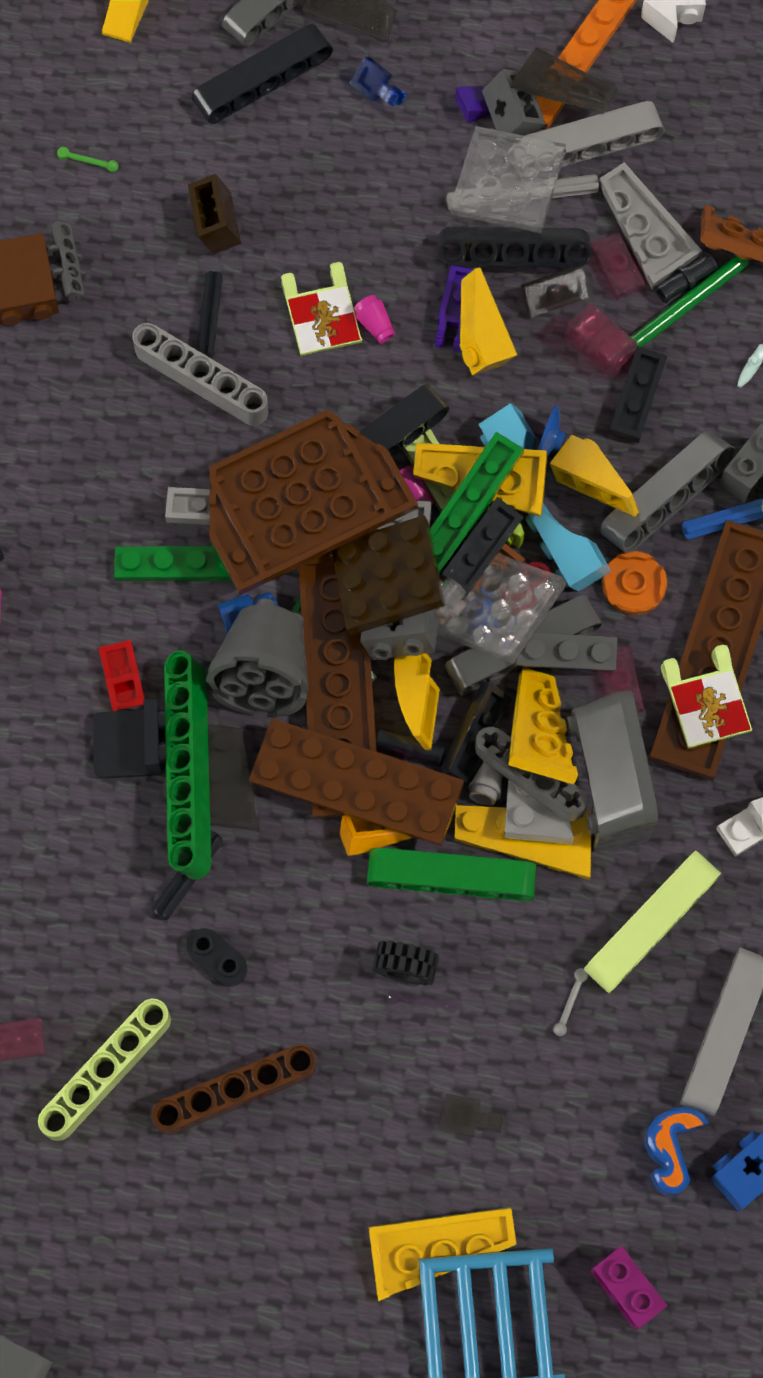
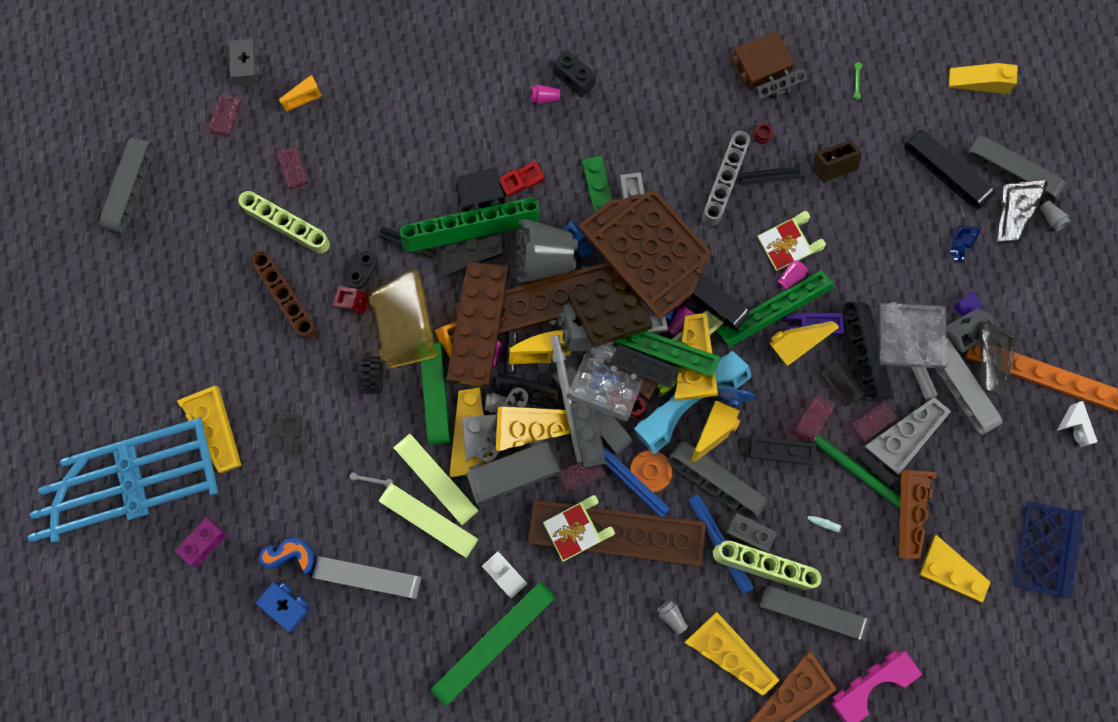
camera: 80 degrees right, 5 degrees up
(138, 307) = (763, 133): none -> dark red plate
(266, 982) = (351, 299): none -> dark red bracket
(326, 891) = (403, 321): none -> clear yellow windscreen
(421, 348) = (777, 307): none -> green plate
(443, 667) = (559, 358): none -> light grey bar
(589, 898) = (436, 479): none -> yellowish green beam
(655, 603) = (635, 484): none -> blue axle

